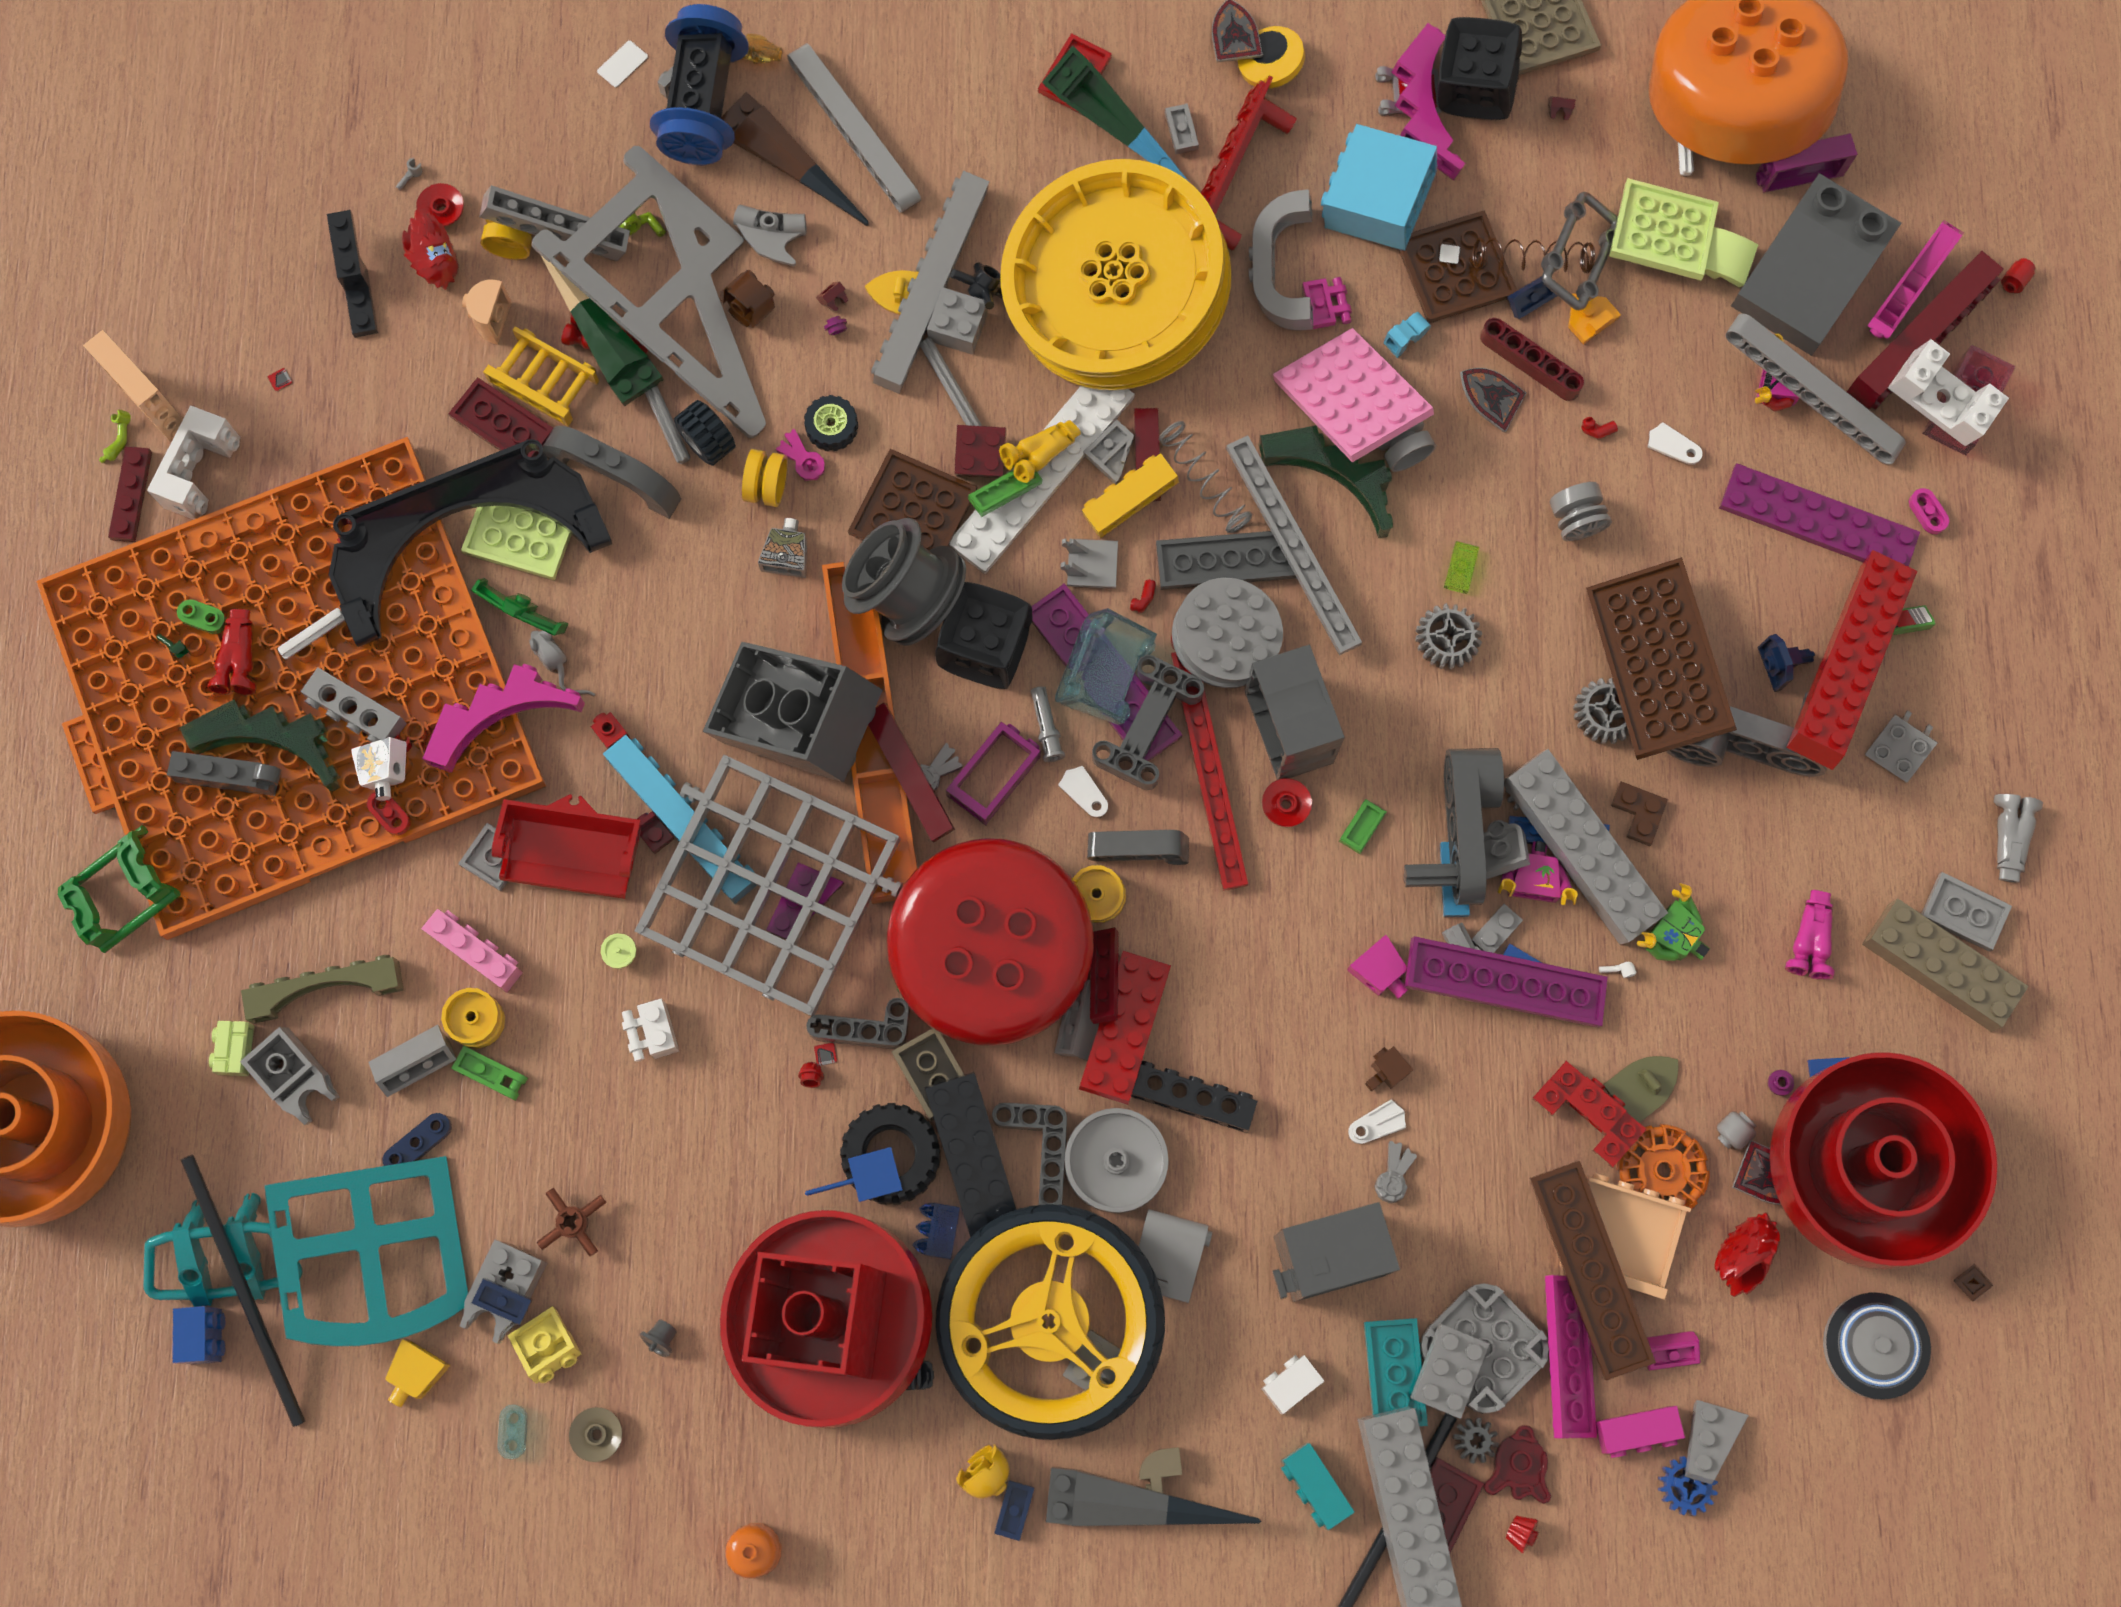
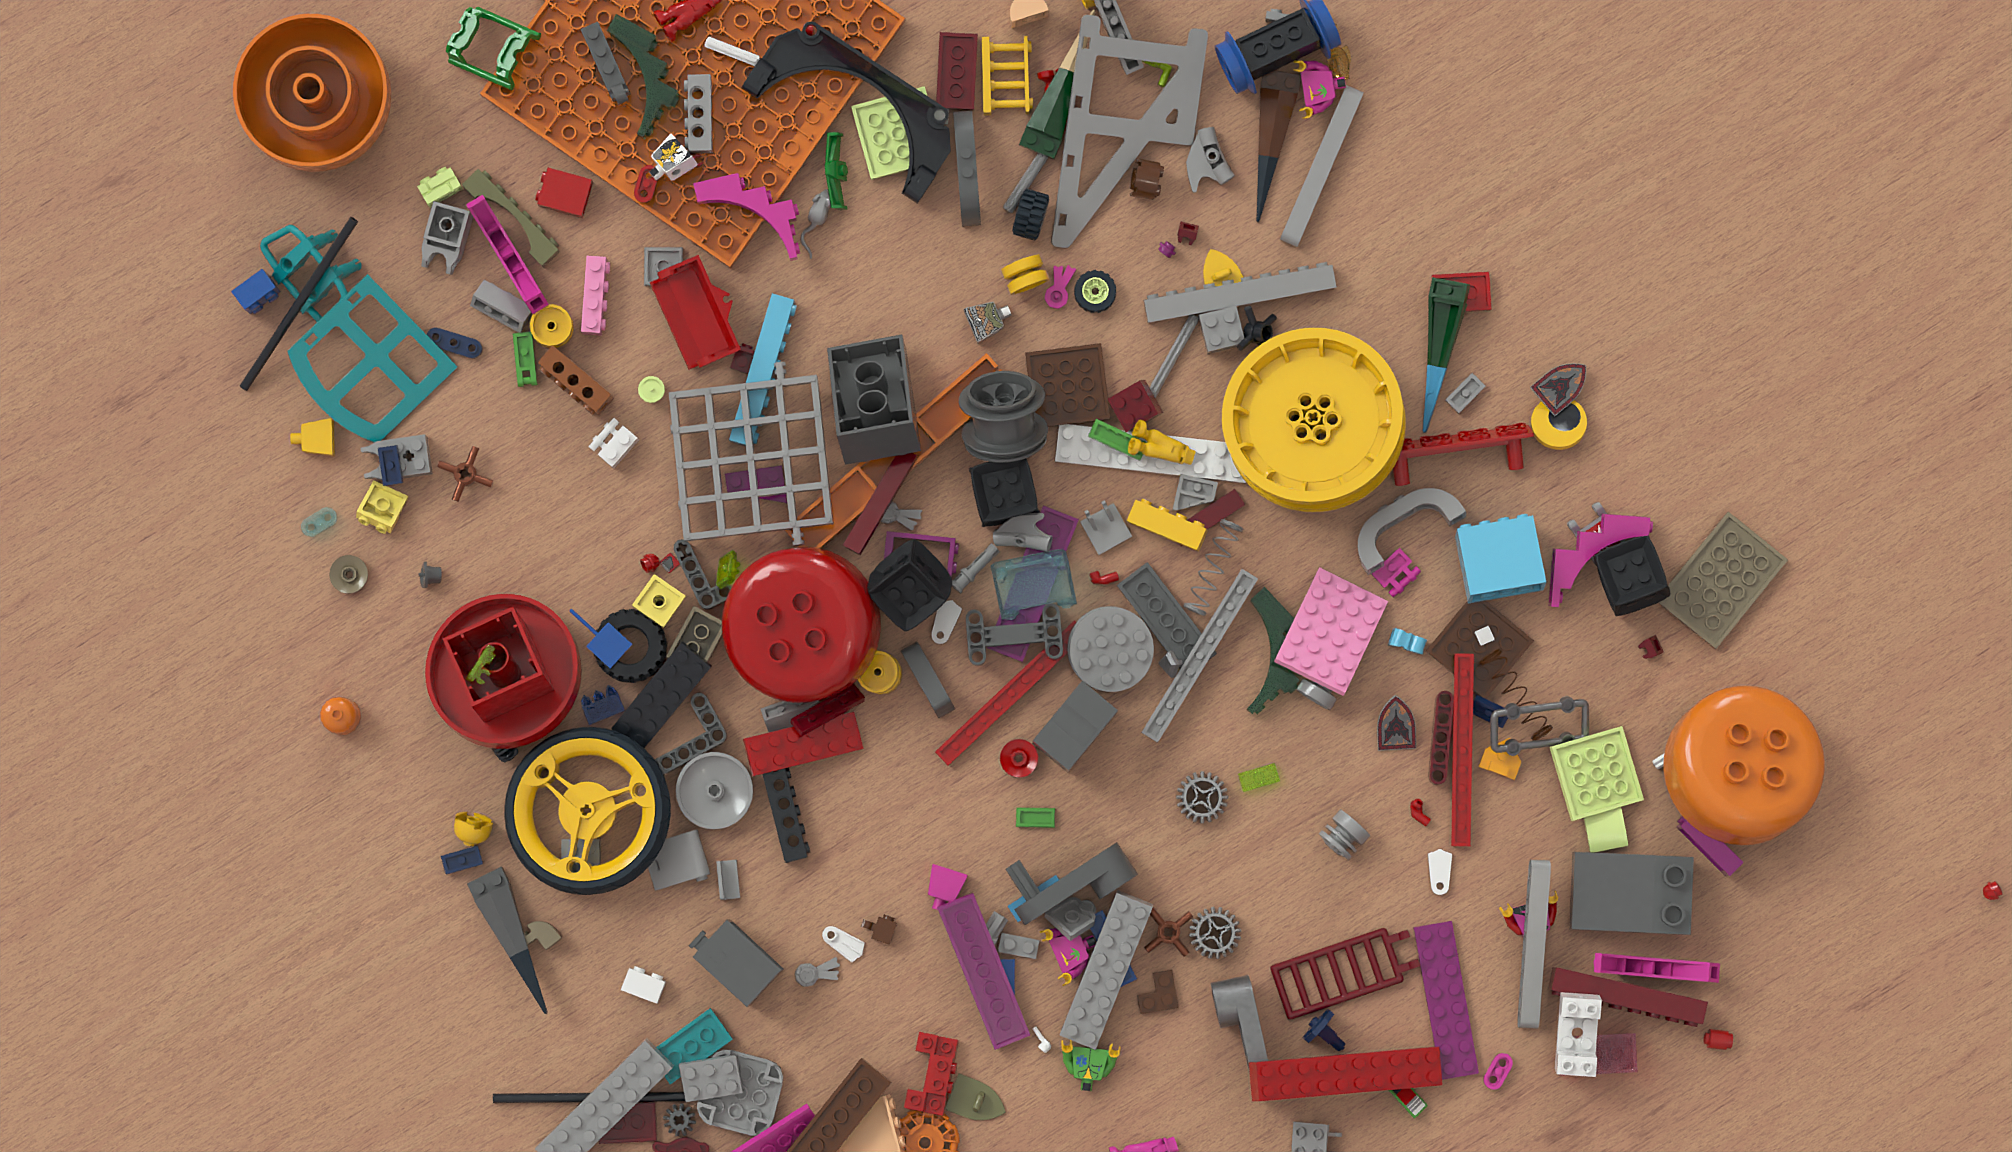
camera: 60 degrees right, 10 degrees up
(336, 913) = (564, 192): none -> red brick
(356, 1016) = (507, 254): none -> dark pink arch
(512, 1033) = (553, 359): none -> dark orange brick
(602, 722) = (792, 293): red brick -> none
(768, 79) = (1318, 86): none -> dark pink torso
(797, 1321) = (486, 657): none -> clear neon green plate
(854, 1076) = (656, 591): none -> light yellow plant
(875, 990) = (727, 569): none -> clear neon green plate
(1023, 794) = (909, 585): none -> black piece
(1041, 645) = (1023, 532): none -> light grey pin
(1227, 1209) = (728, 879): none -> light grey panel
(1283, 579) = (1170, 663): none -> flat silver piece
(1316, 1487) = (590, 1037): teal brick -> none
(1560, 344) = (1462, 749): none -> red plate
(1583, 752) = (1176, 932): none -> copper bar
(1660, 659) = (1266, 945): reddish brown plate -> none
(1755, 619) = (1329, 951): none -> dark red bar

